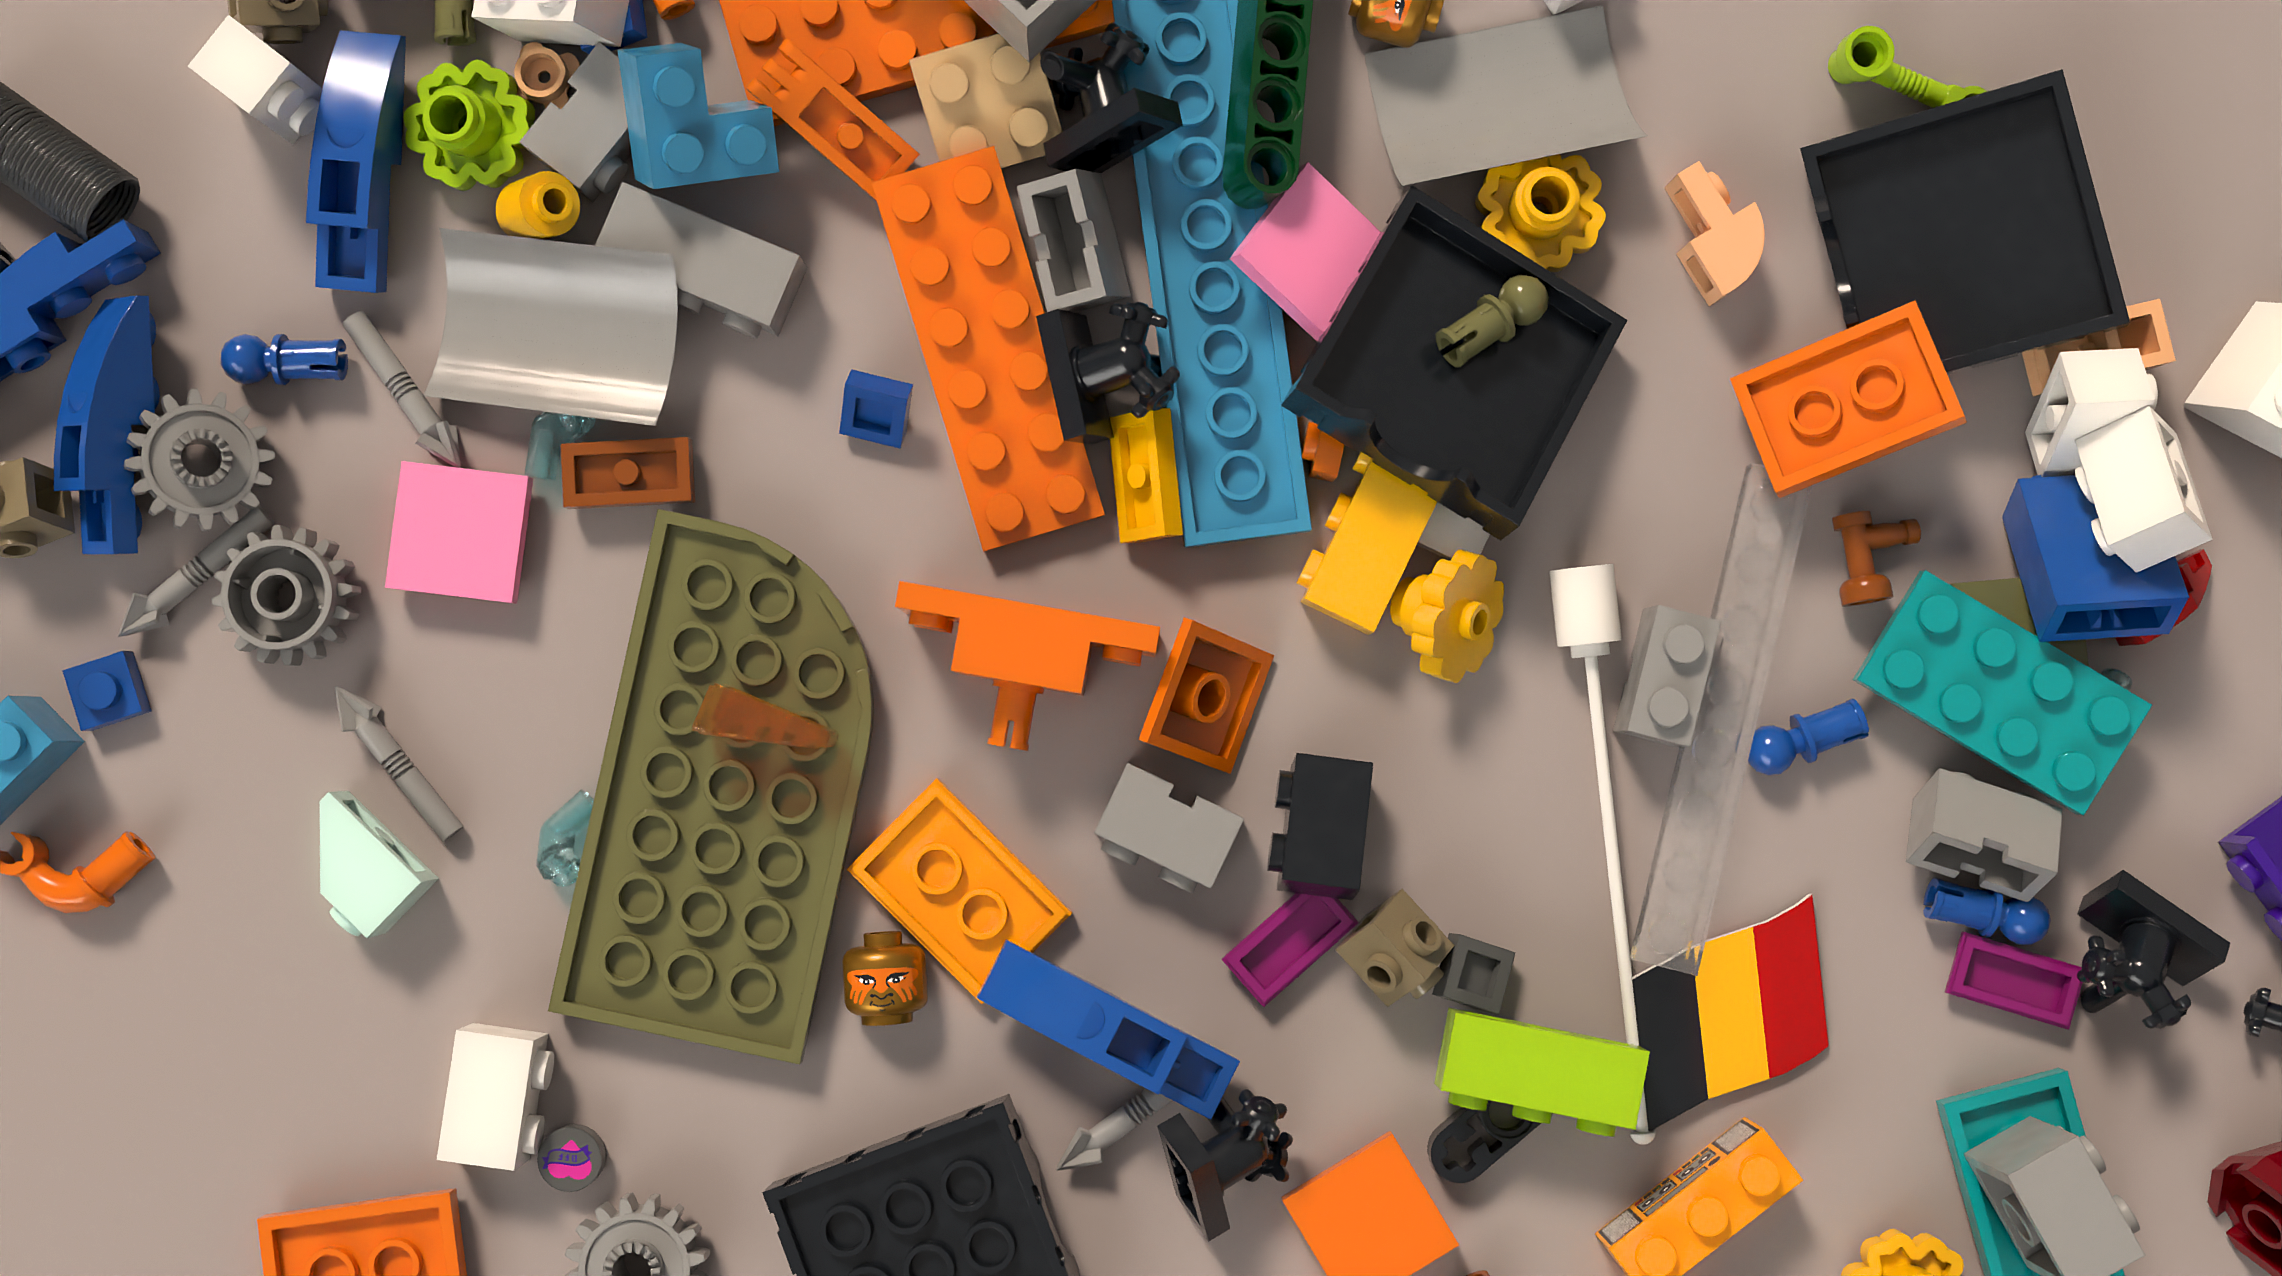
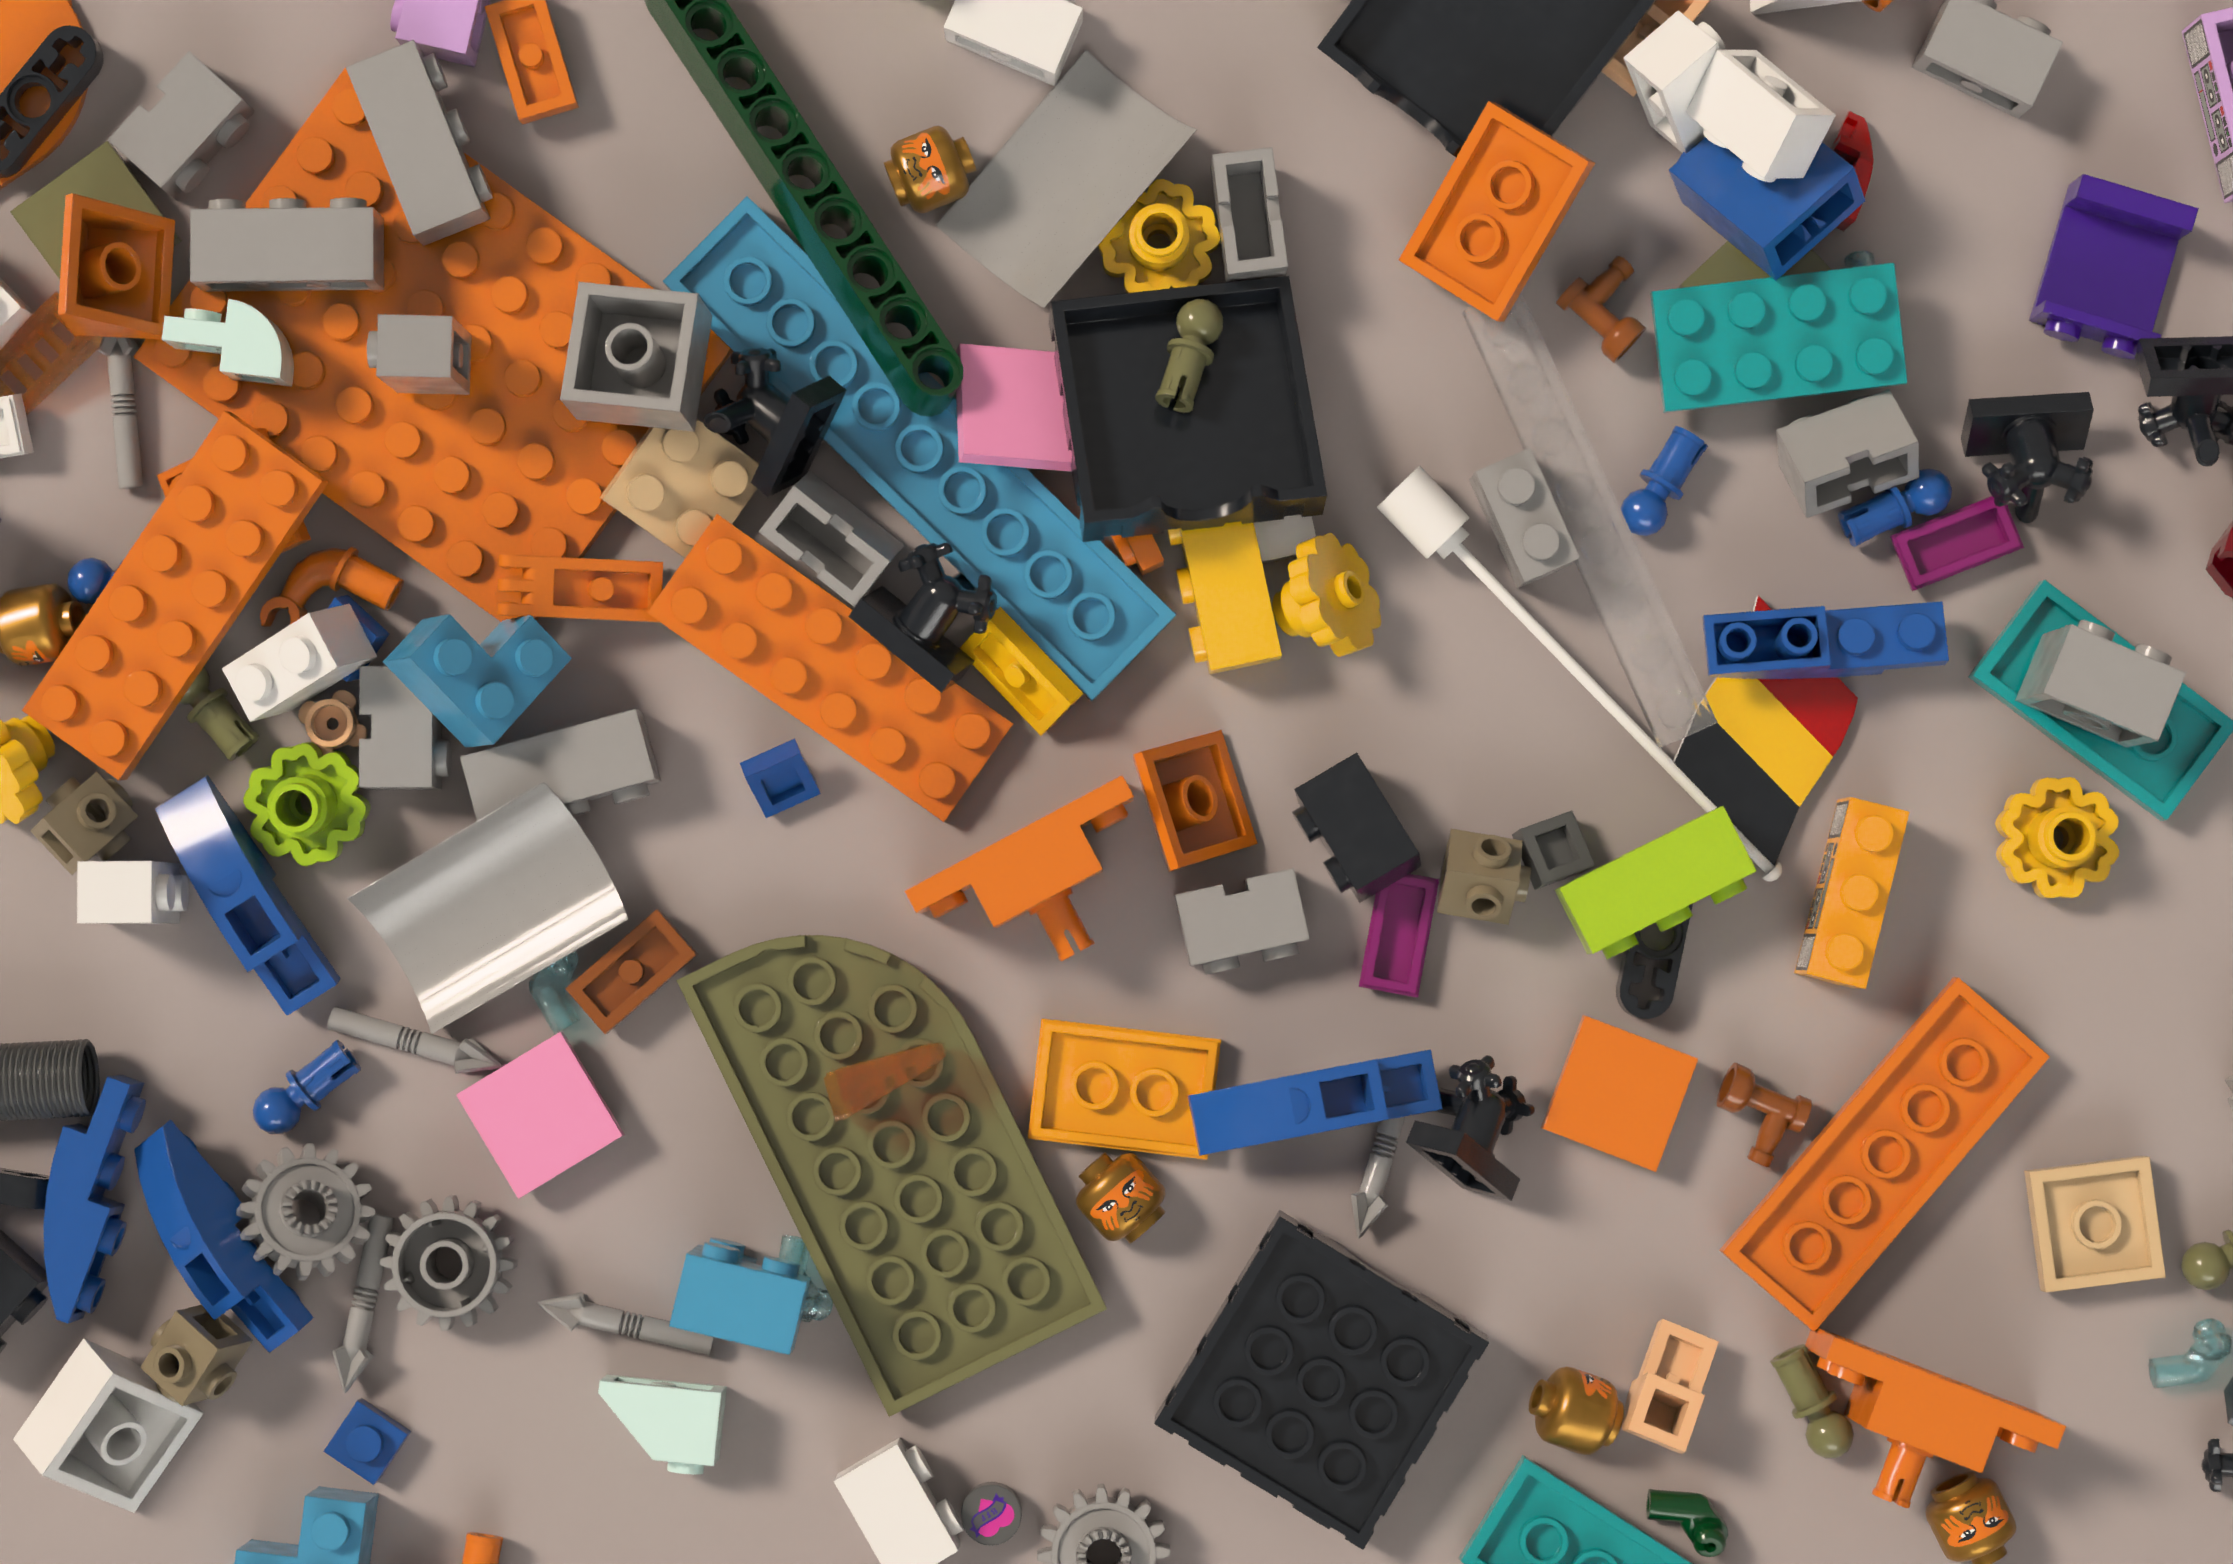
camera: 40 degrees left, 0 degrees up
(494, 816) = (739, 1300): none -> dark azure brick
(538, 206) = (409, 825): yellow brick -> none
(1635, 241) = (1249, 215): none -> light grey brick
(1724, 243) = (1318, 162): light nougat brick -> none
(1840, 979) = (1824, 642): none -> blue slope

